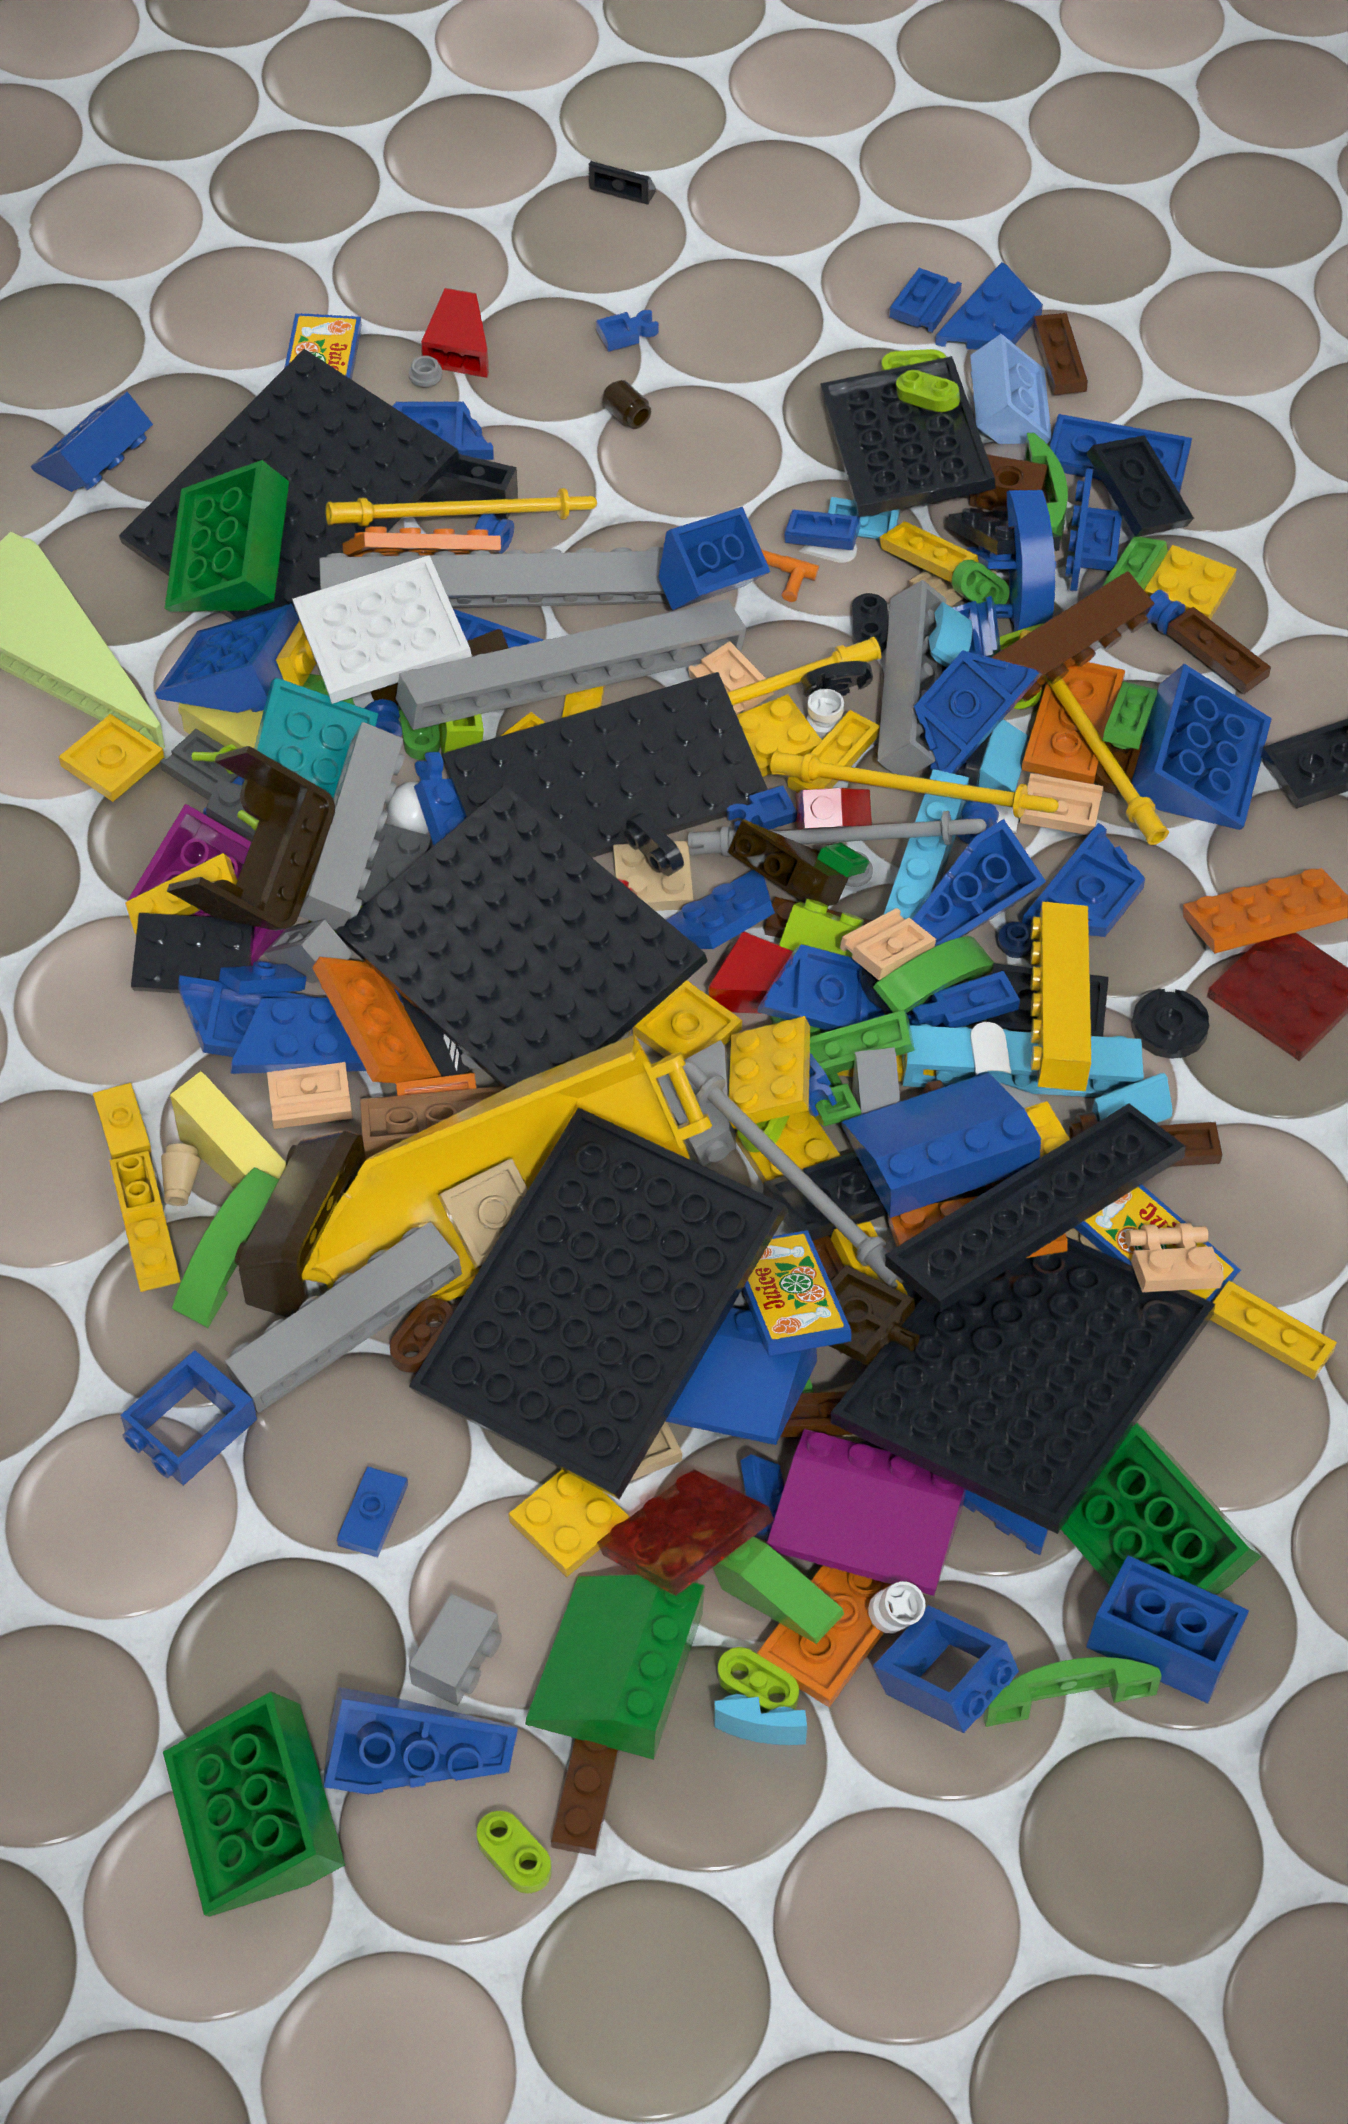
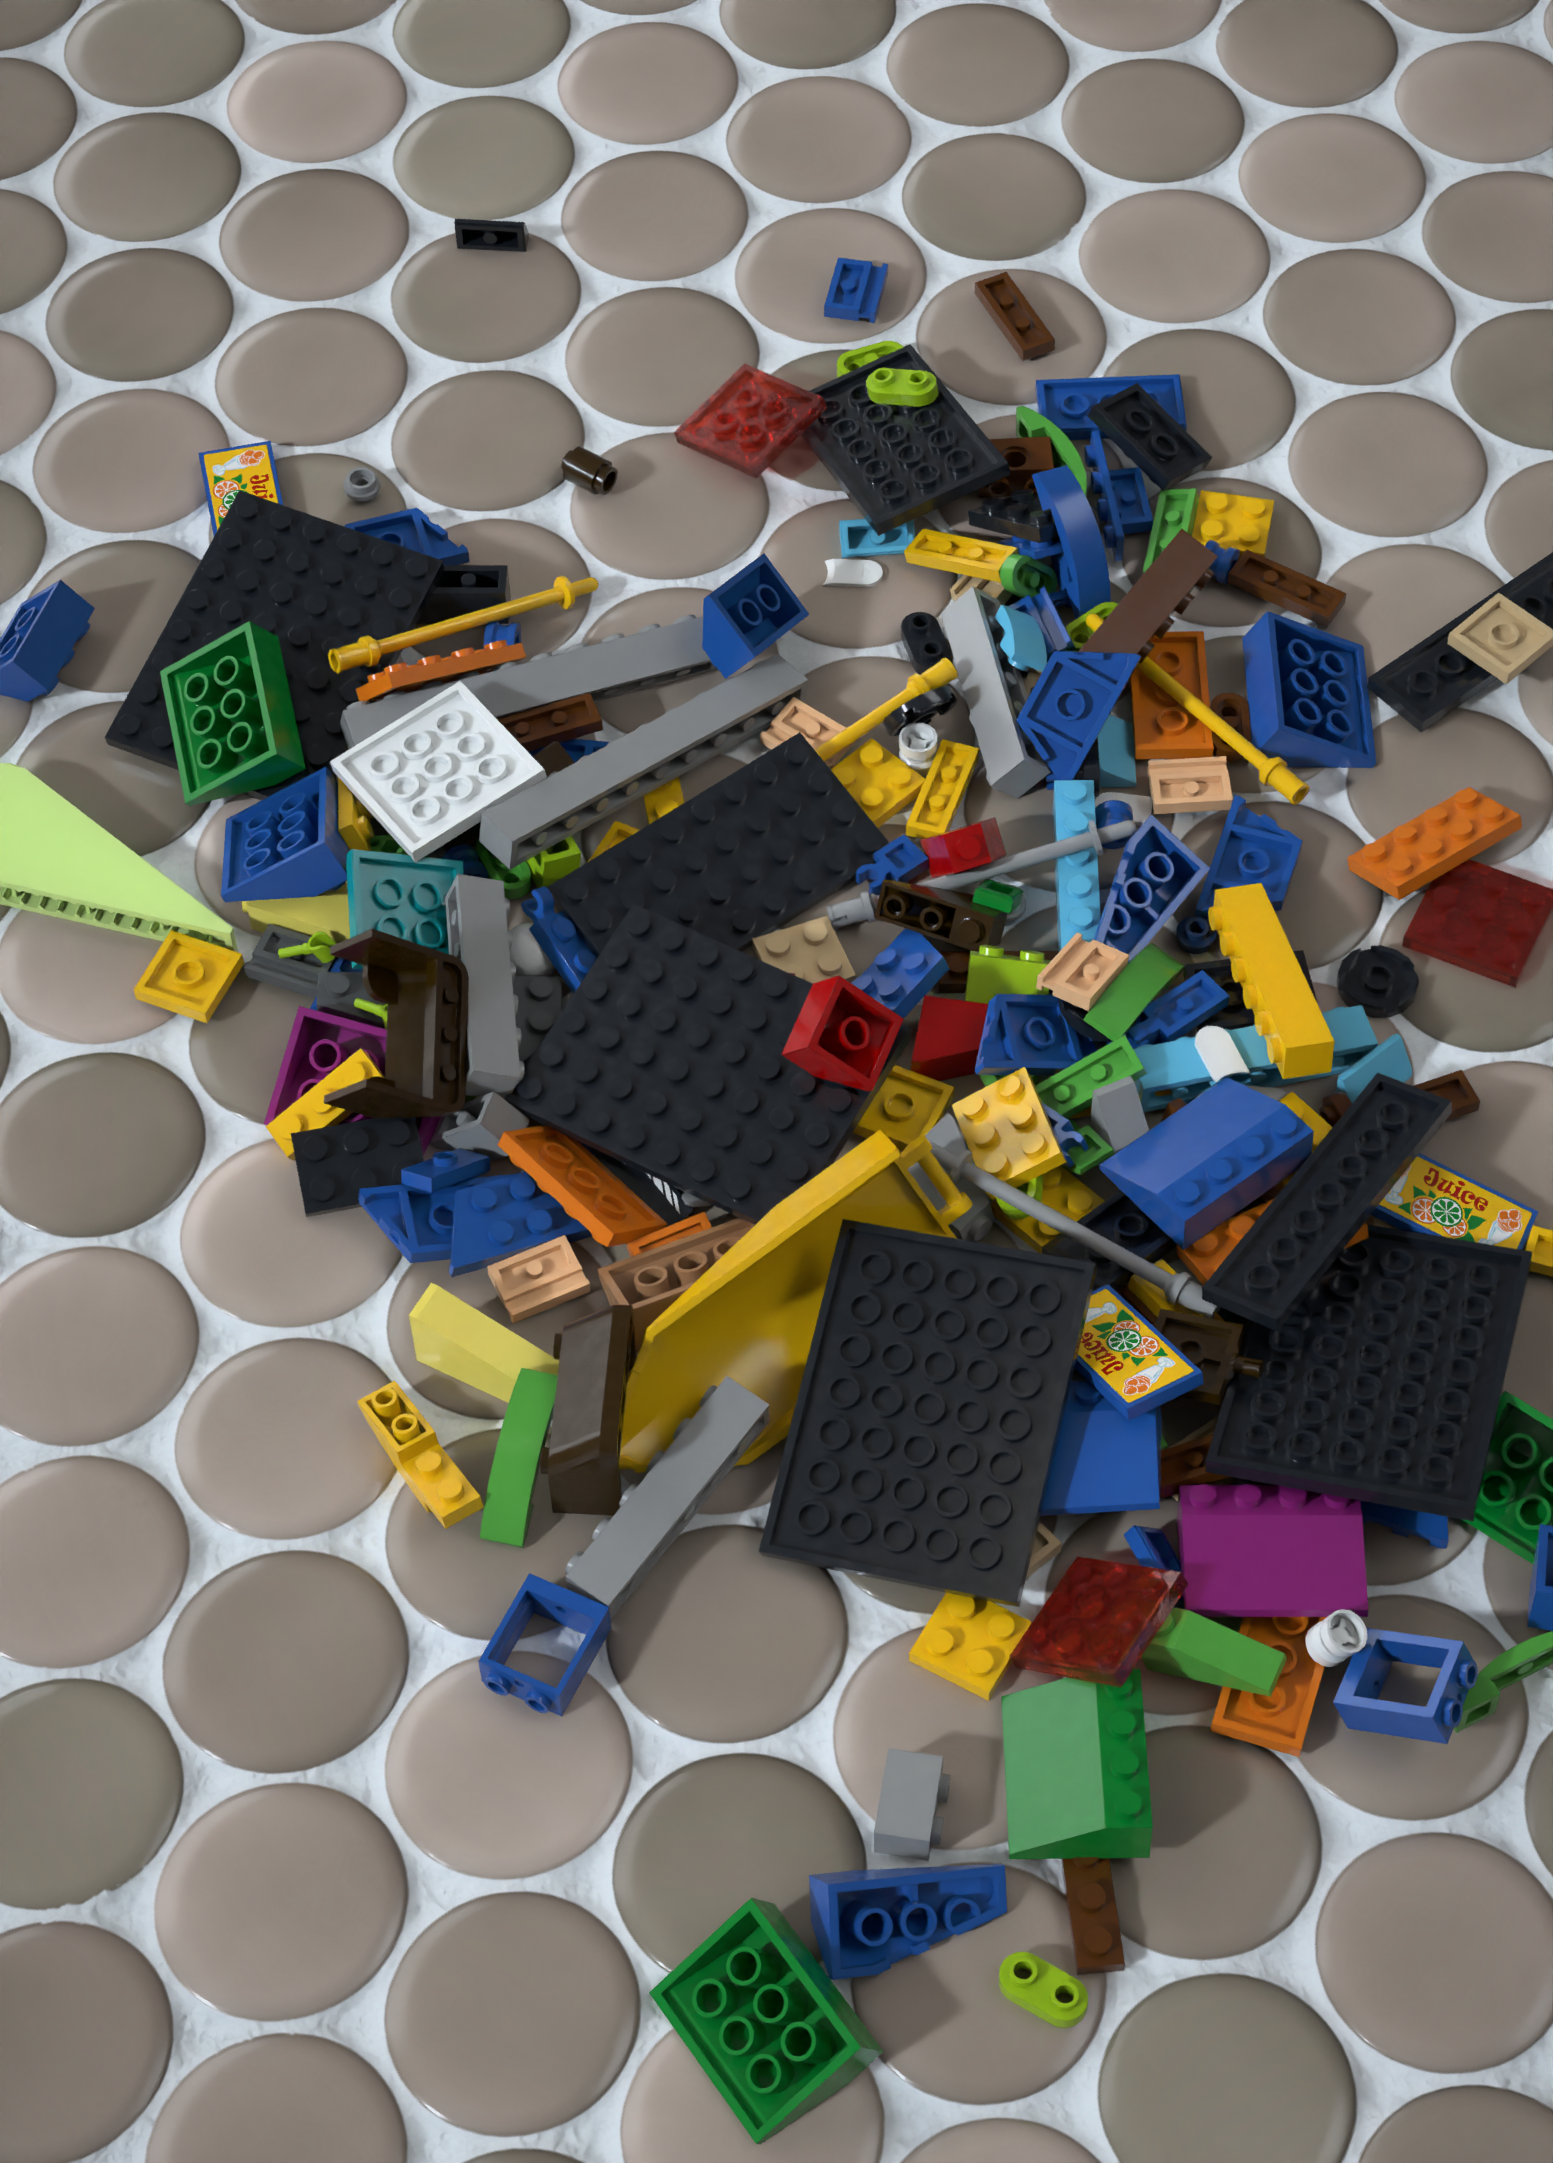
camera: 15 degrees left, 0 degrees up
(121, 1121) = (351, 1358): yellow plate -> none
(179, 1173) = (434, 1394): tan cone -> none
(372, 1512) = (768, 1689): blue plate -> none
(417, 1335) = (750, 1498): reddish brown plate -> none
(457, 334) = (384, 436): red slope -> none
(484, 1207) = (775, 1349): tan plate -> none
(502, 612) = (554, 722): none -> reddish brown plate
(623, 331) = (554, 393): blue plate -> none
(638, 943) = (842, 1034): none -> red slope
(654, 844) = (800, 928): black plate -> none
(743, 1719) = (1226, 1792): medium azure slope -> none
(761, 1680) = (1223, 1749): lime plate -> none
(784, 391) = (750, 420): none -> clear red plate
(798, 569) = (832, 605): orange piece -> none
(810, 768) = (930, 809): yellow bar -> none
(822, 529) = (842, 557): blue plate -> none
(995, 308) = (931, 289): blue wing -> none
(1009, 393) = (979, 369): light blue slope -> none
(1130, 716) = (1228, 677): bright green plate -> none
(1176, 1268) = (1480, 1227): light nougat plate -> none

